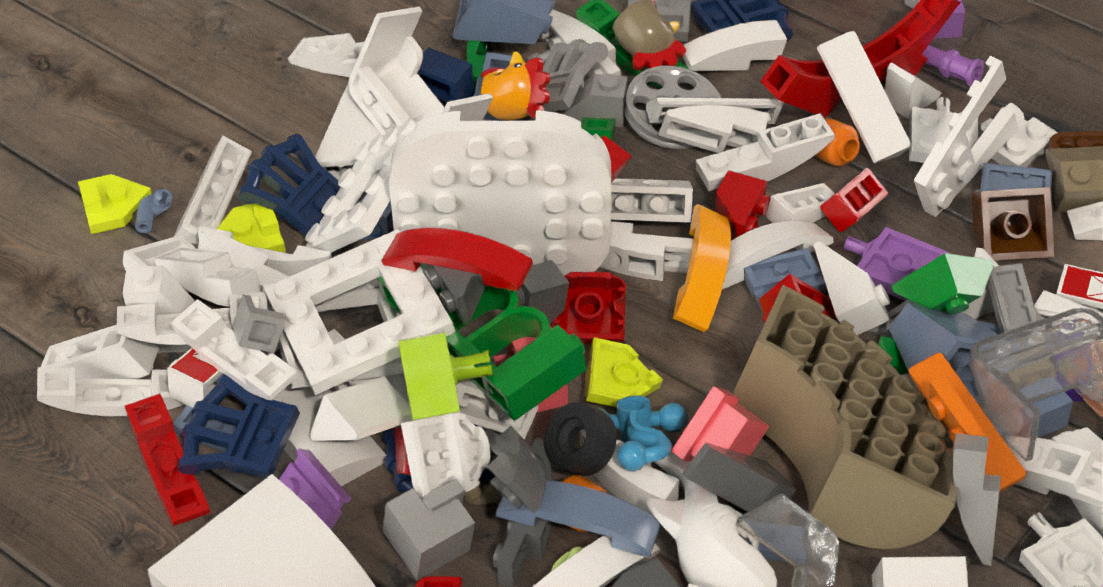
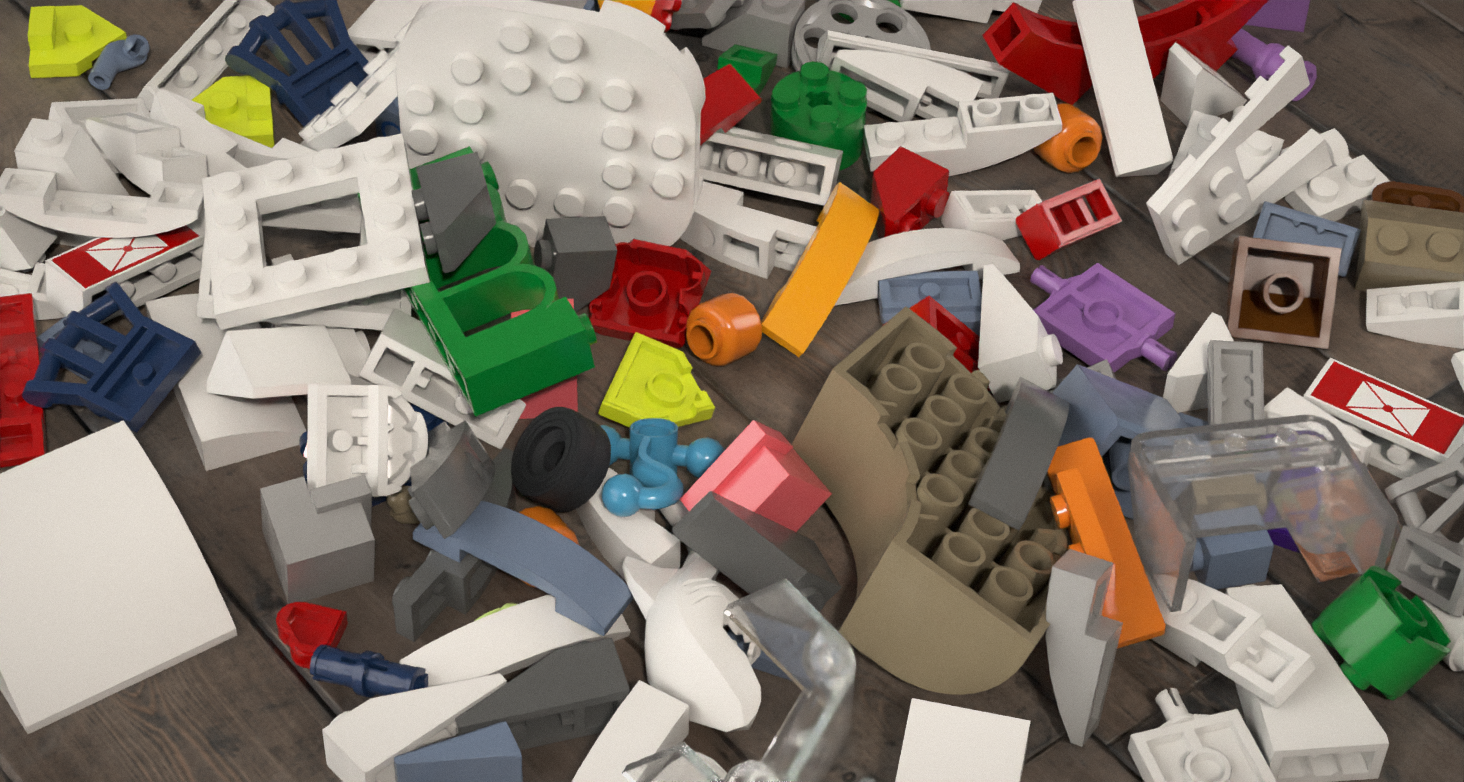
camera: 10 degrees right, 0 degrees up
(218, 345) = (131, 253): white slope -> none
(257, 327) = (174, 227): light grey panel -> none
(315, 487) = (185, 458): medium lavender plate -> none
(434, 373) = (372, 328): lime brick -> none
(460, 251) = (465, 174): red slope -> none
(651, 323) = (724, 329): none -> orange head
(663, 153) = (821, 110): none -> green brick
(900, 372) = (1021, 454): none -> dark grey slope
(946, 282) = (1143, 347): green slope -> none

